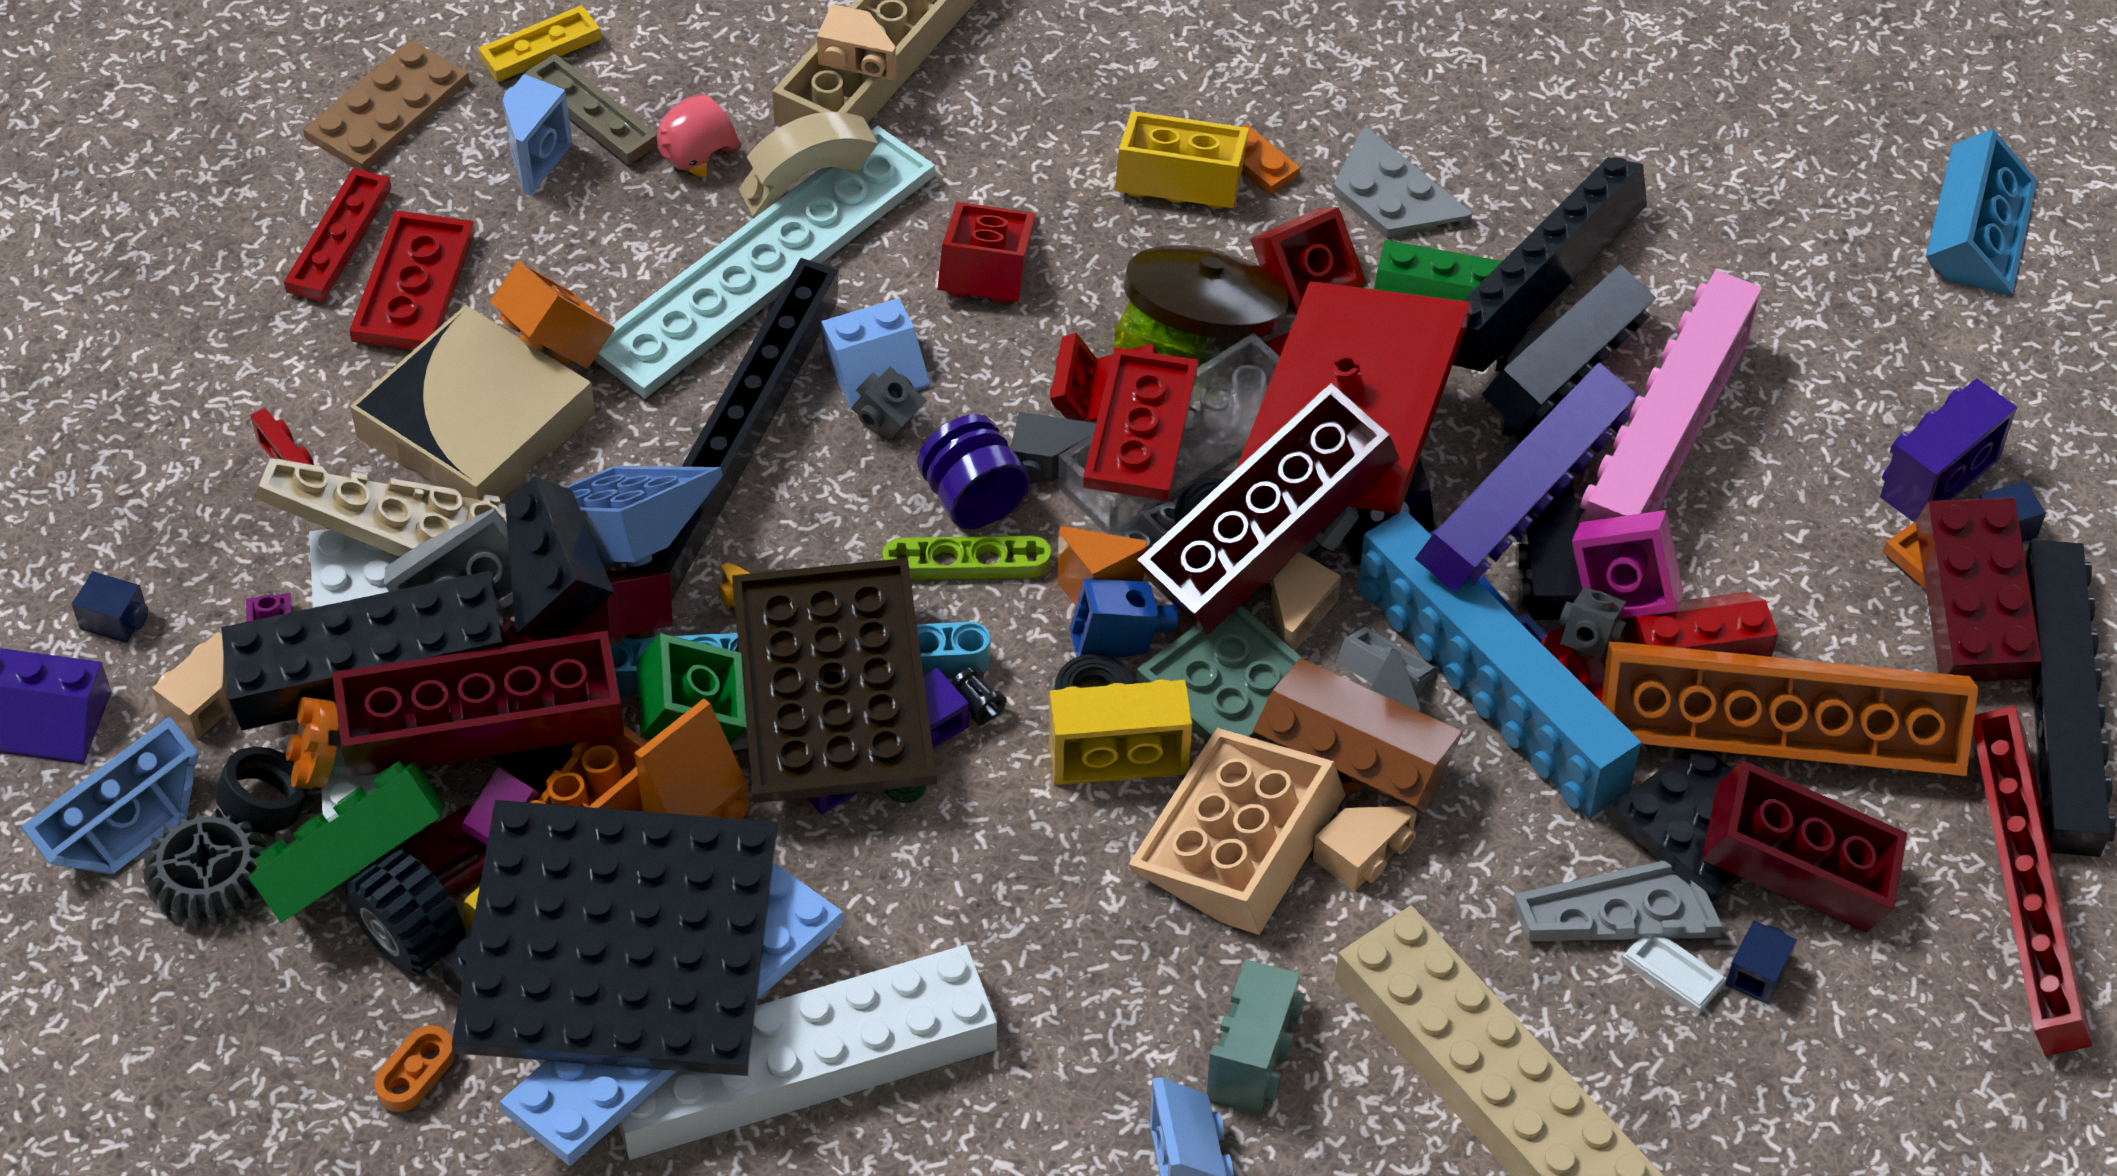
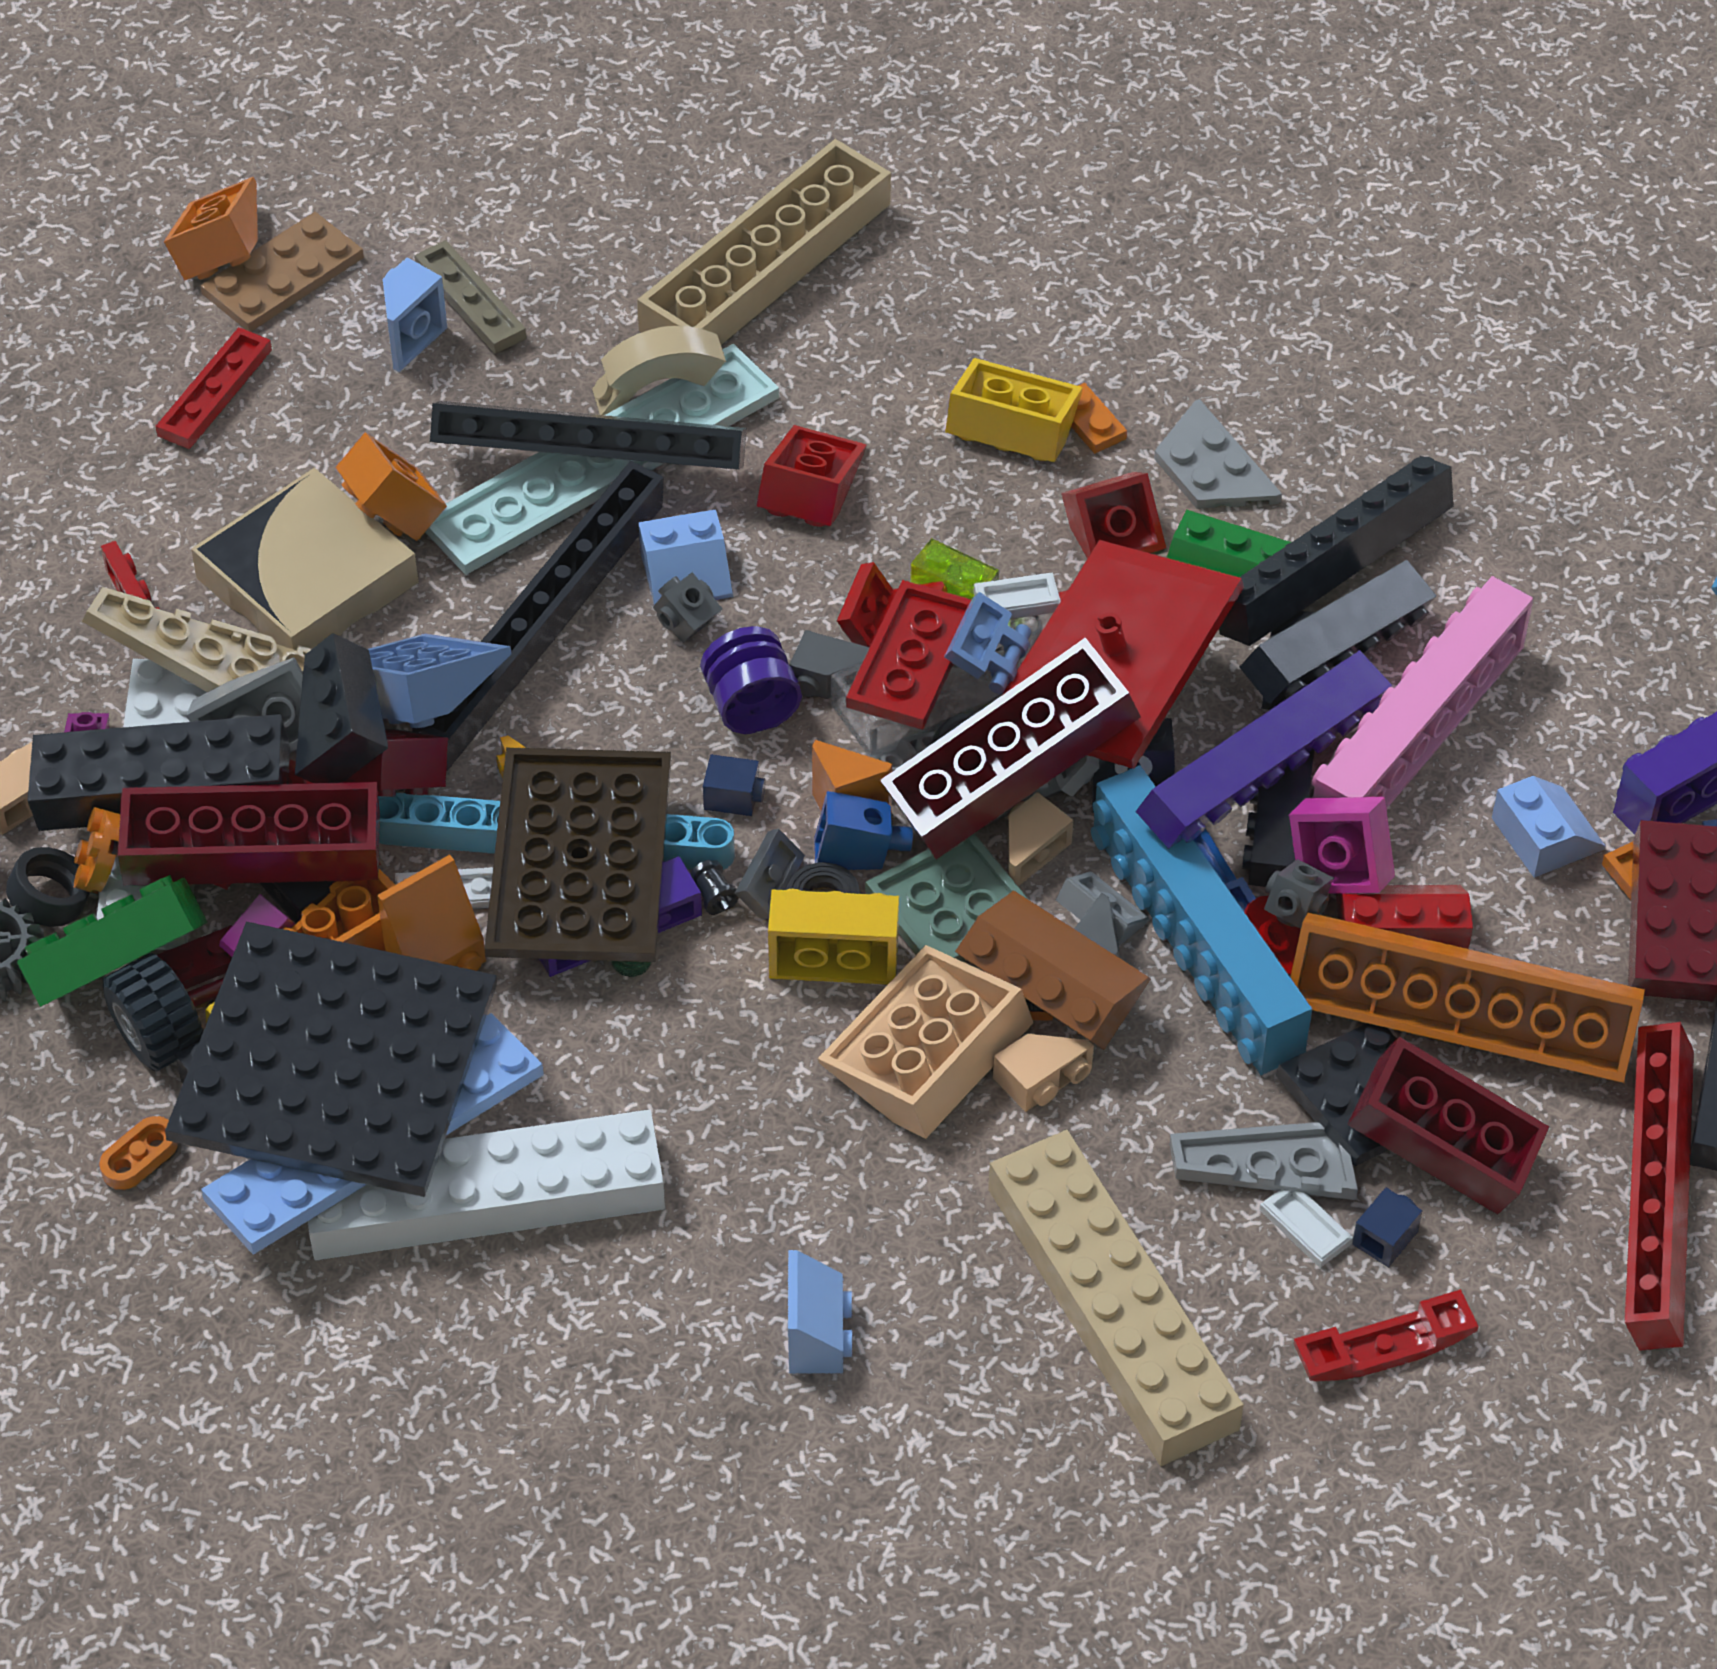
camera: 10 degrees right, 0 degrees up
(310, 71) = (215, 231): none -> orange slope
(412, 280) = (273, 437): red plate -> none
(538, 42) = (427, 229): yellow plate -> none
(681, 673) = (443, 827): green brick -> none
(694, 132) = (559, 329): coral piece -> none
(749, 236) = (588, 435): none -> black brick
(855, 43) = (721, 263): light nougat slope -> none
(966, 551) = (738, 749): lime beam -> none
(975, 585) = (732, 785): none -> dark blue brick
(1034, 673) = (770, 869): none -> flat silver plate
(1205, 292) = (1005, 536): dark brown dish -> none
(1208, 399) = (978, 637): none -> medium blue plate
(1235, 351) = (1023, 595): none -> white tile
(1254, 1037) = (898, 1229): sand green wedge -> none
(1791, 1085) = (1388, 1343): none -> red slope
(1816, 520) = (1543, 825): none -> light blue slope

